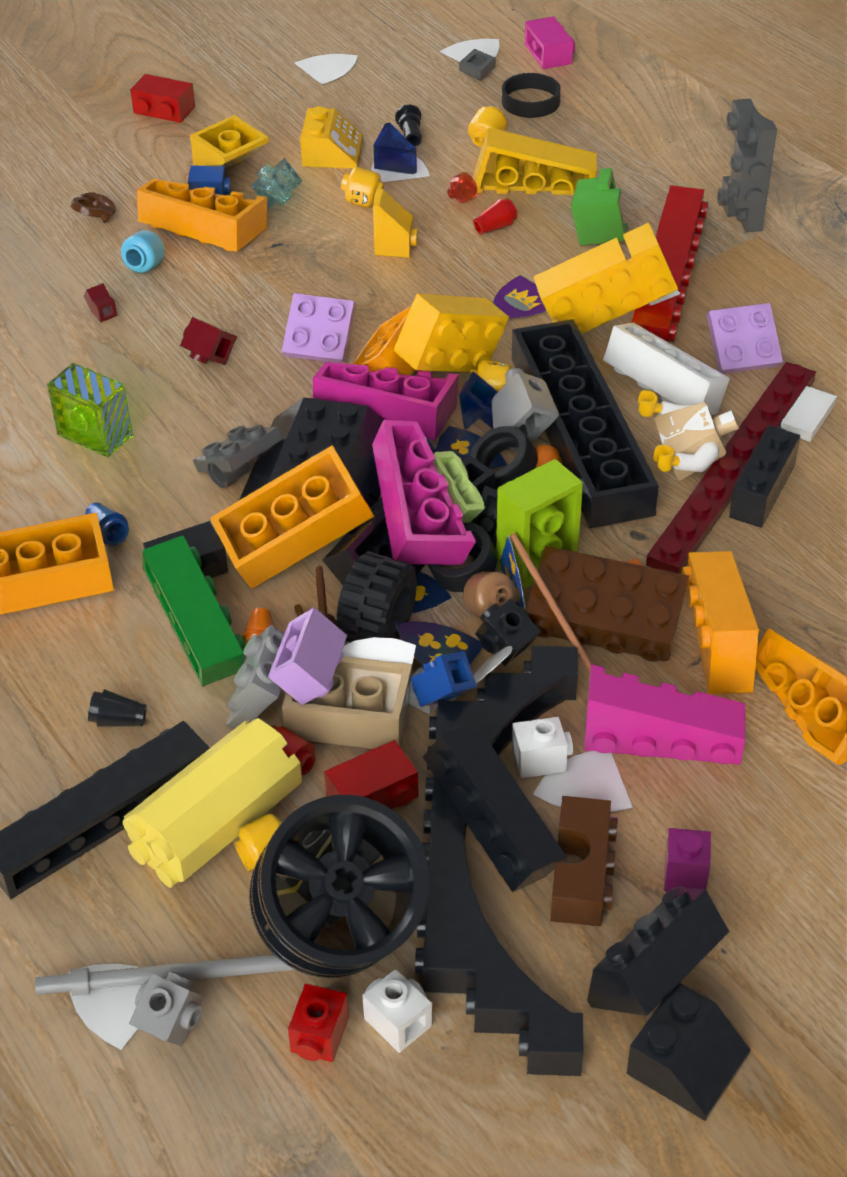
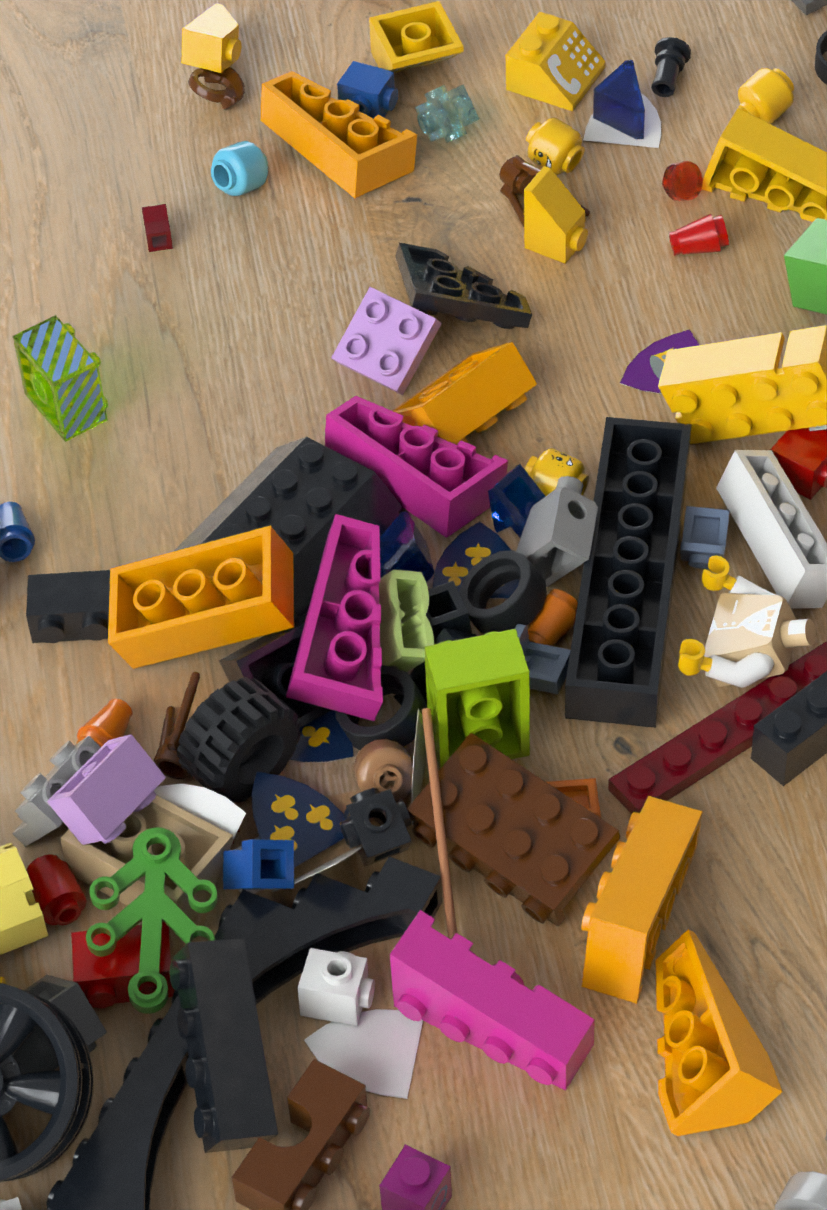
camera: 25 degrees right, 5 degrees up
(77, 177) = (211, 40): none -> yellow slope
(193, 610) = (37, 677): green brick -> none
(207, 342) = (246, 321): dark red brick -> none
(229, 459) = (188, 488): dark grey plate -> none
(349, 211) = (516, 176): none -> reddish brown plant
(350, 286) = (469, 295): none -> black plate
(388, 731) = (150, 908): none -> bright green plant
(450, 332) = (523, 401): yellow brick -> none
(621, 388) = (704, 535): none -> sand blue bracket

